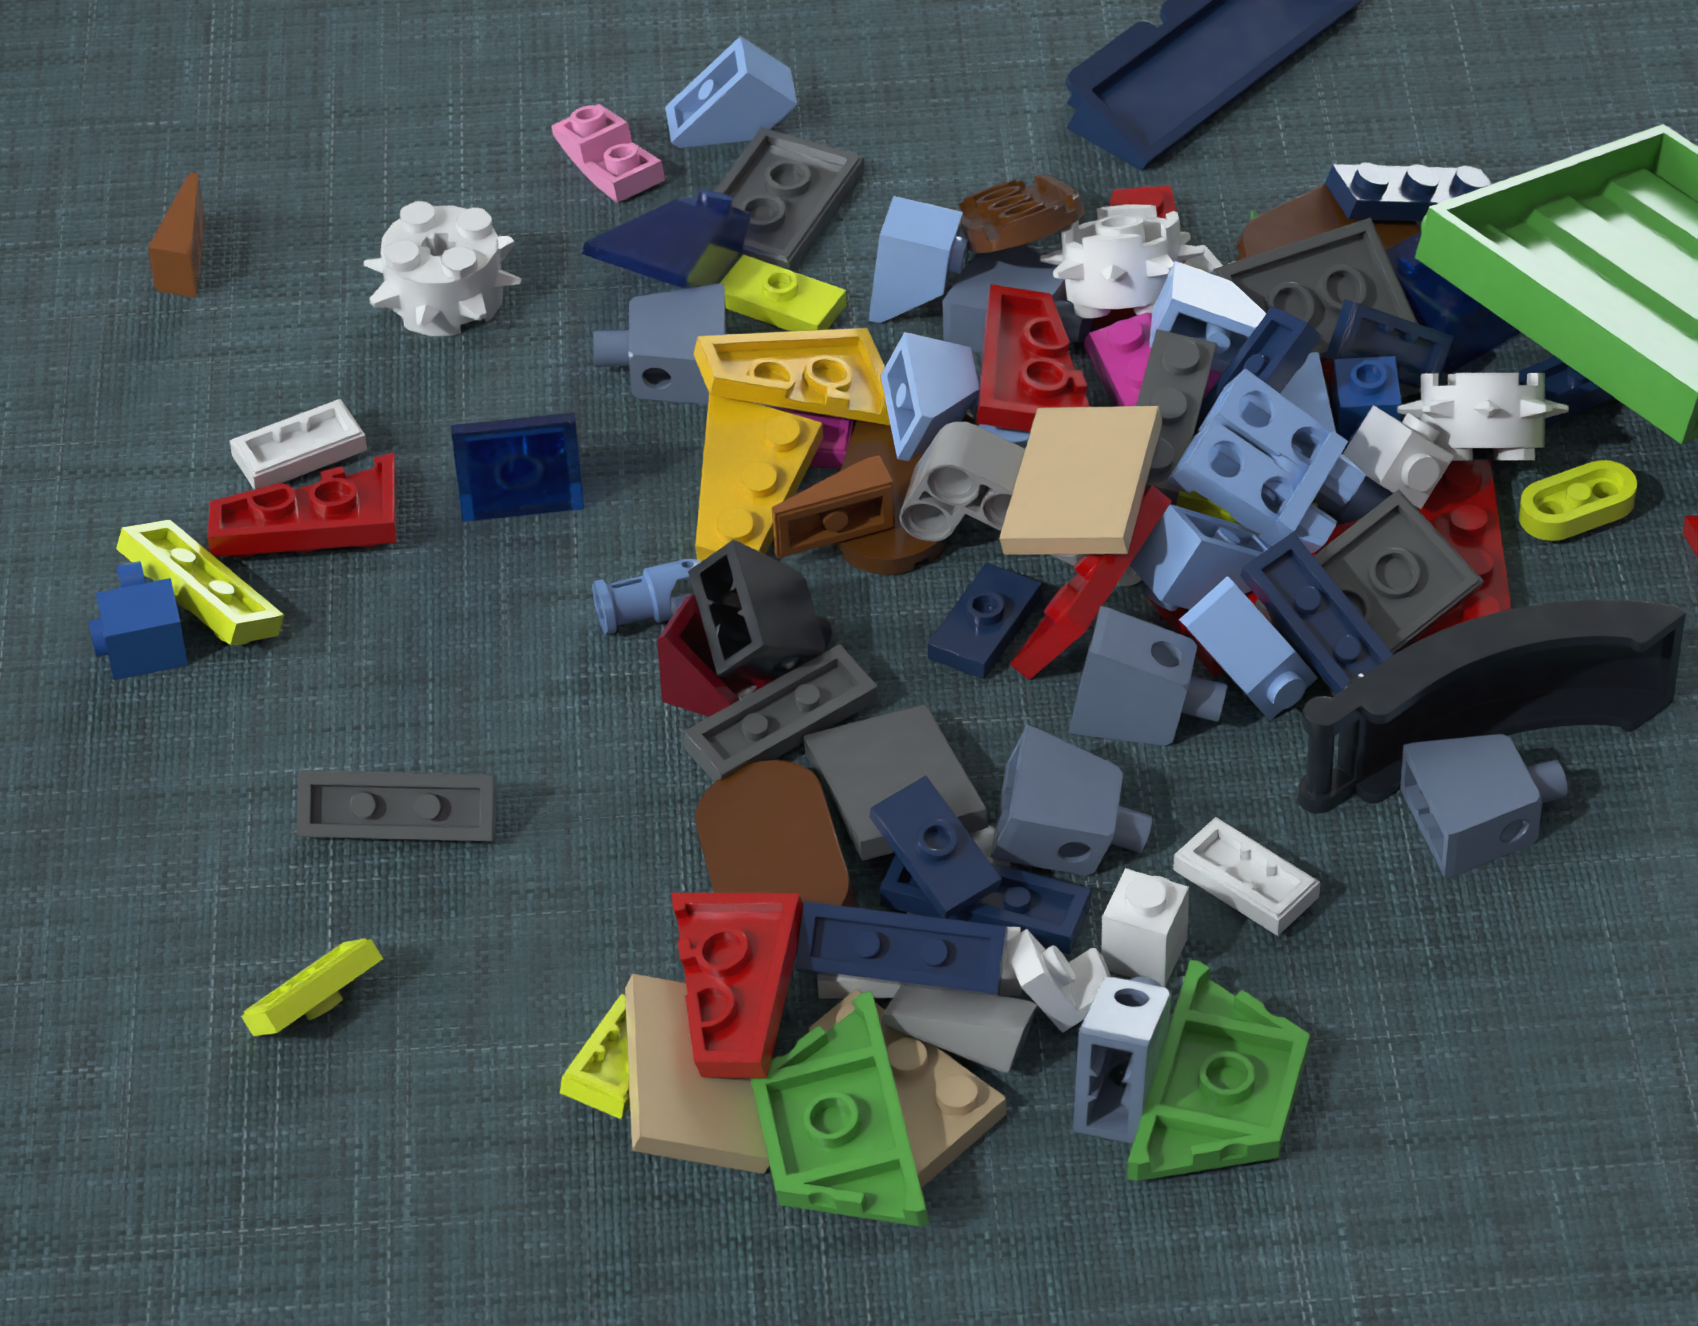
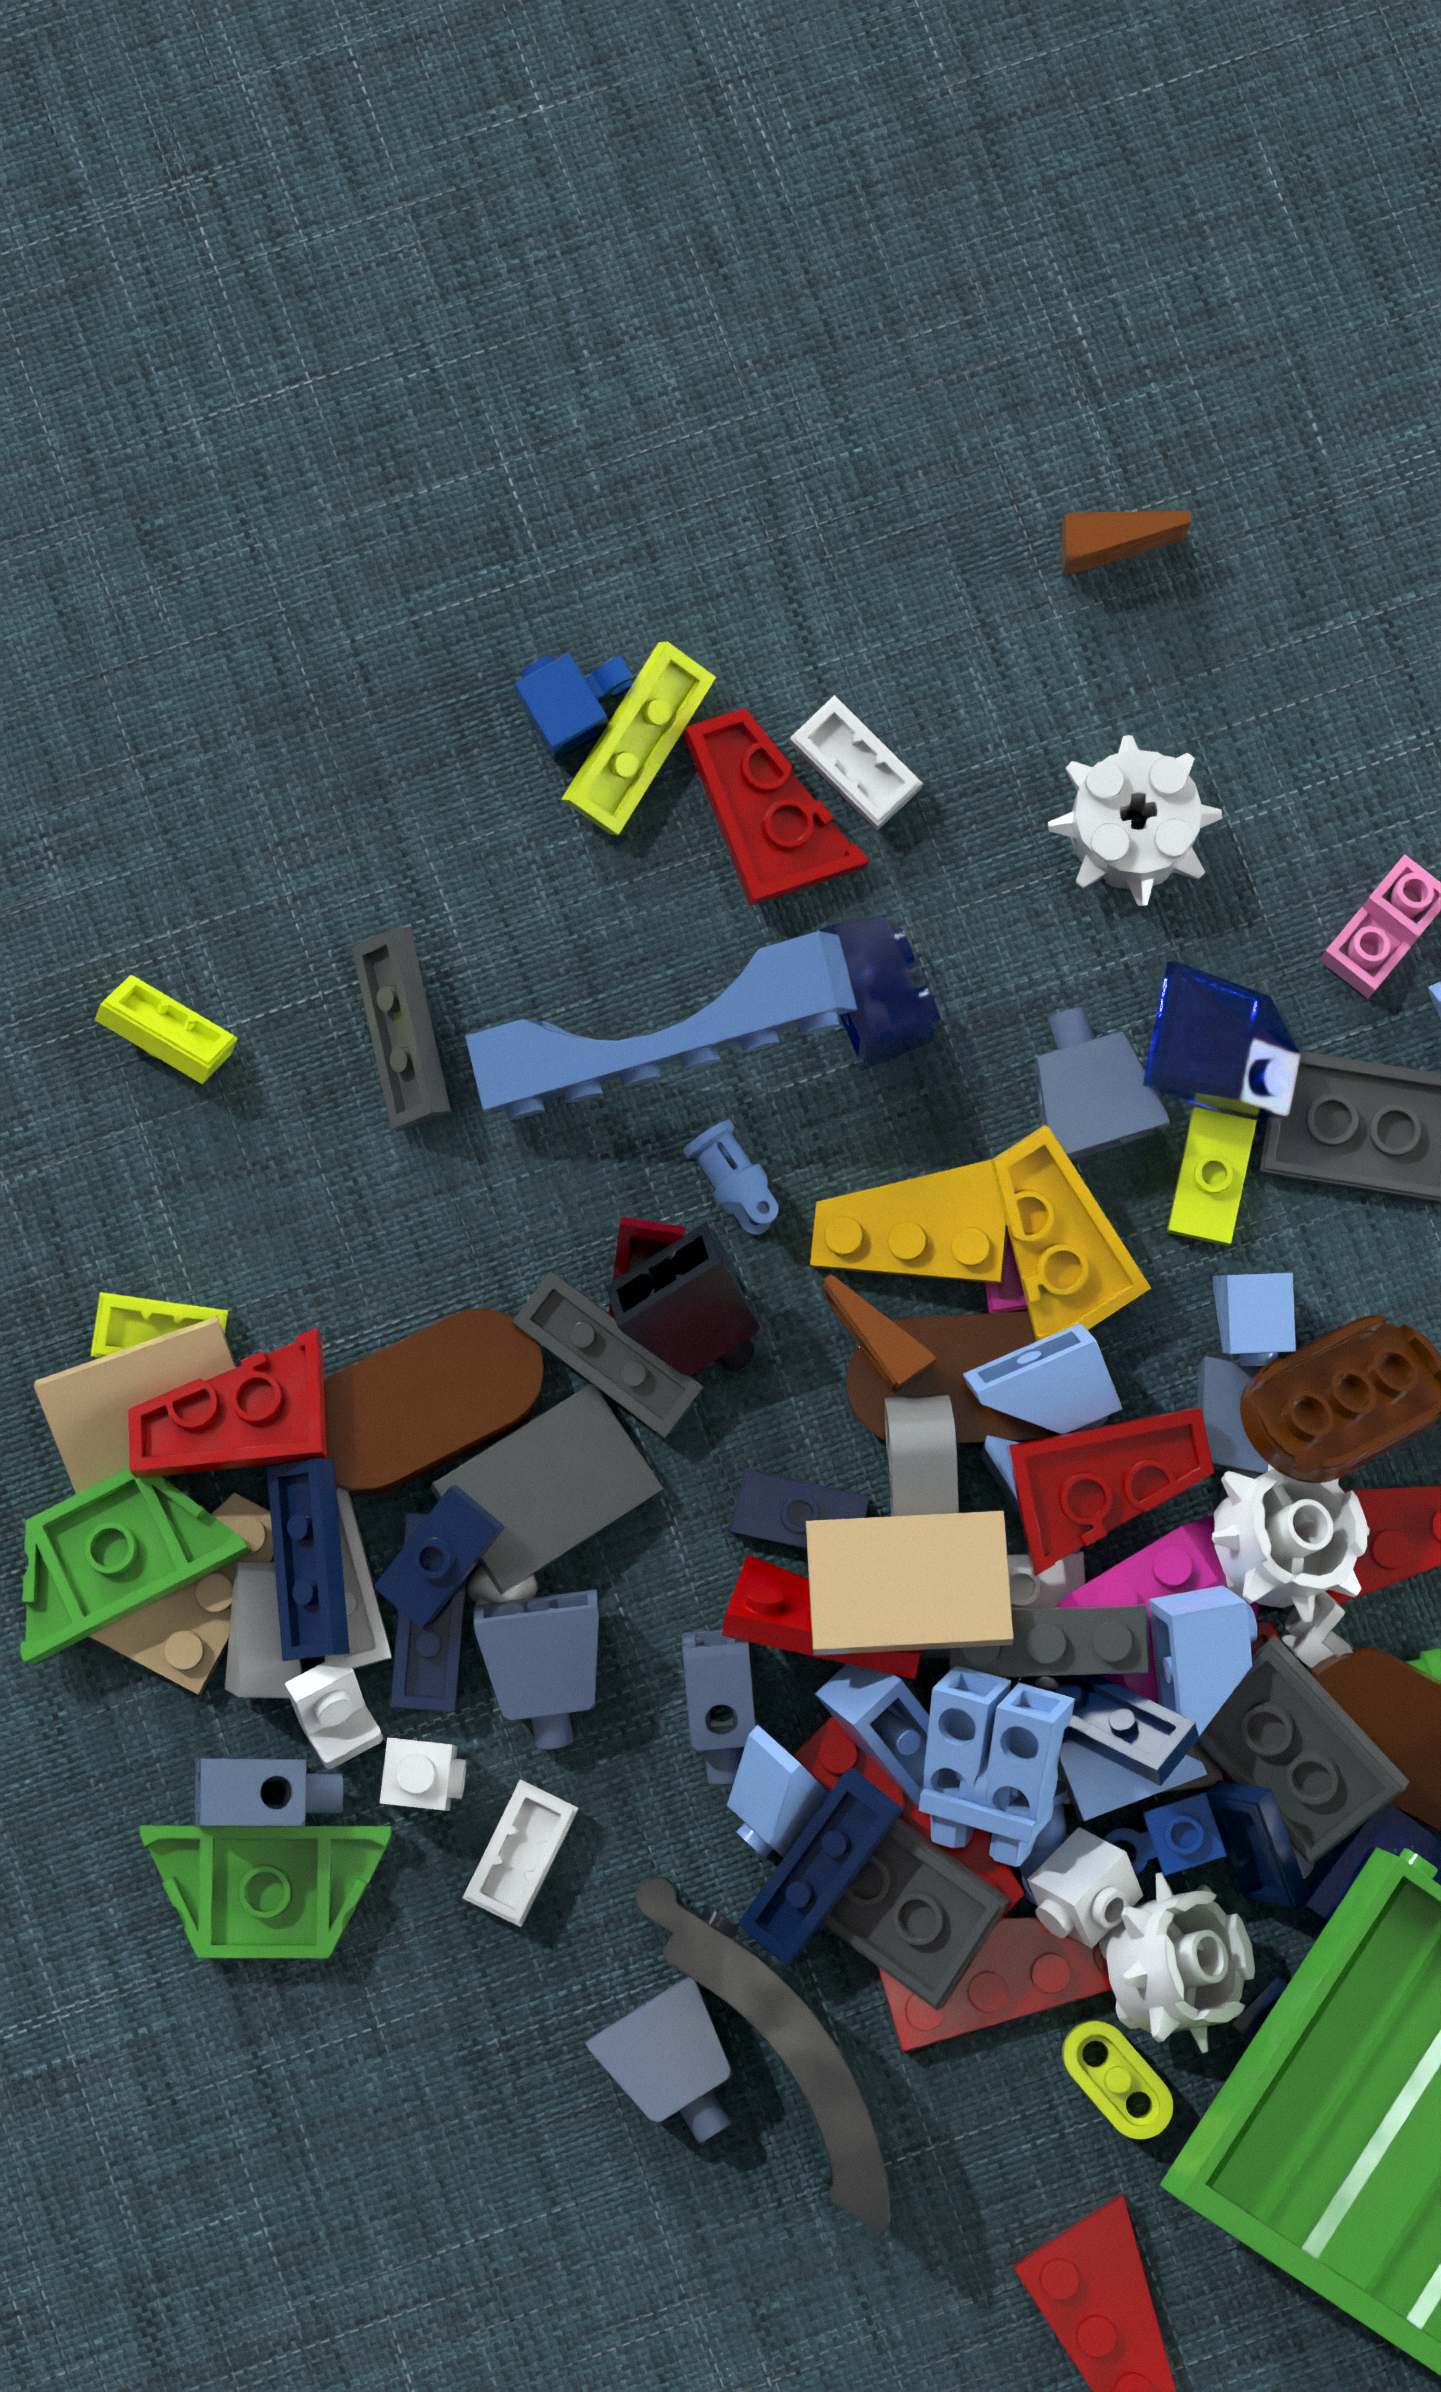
camera: 75 degrees right, 35 degrees up
(476, 691) = (780, 989): none -> medium blue arch

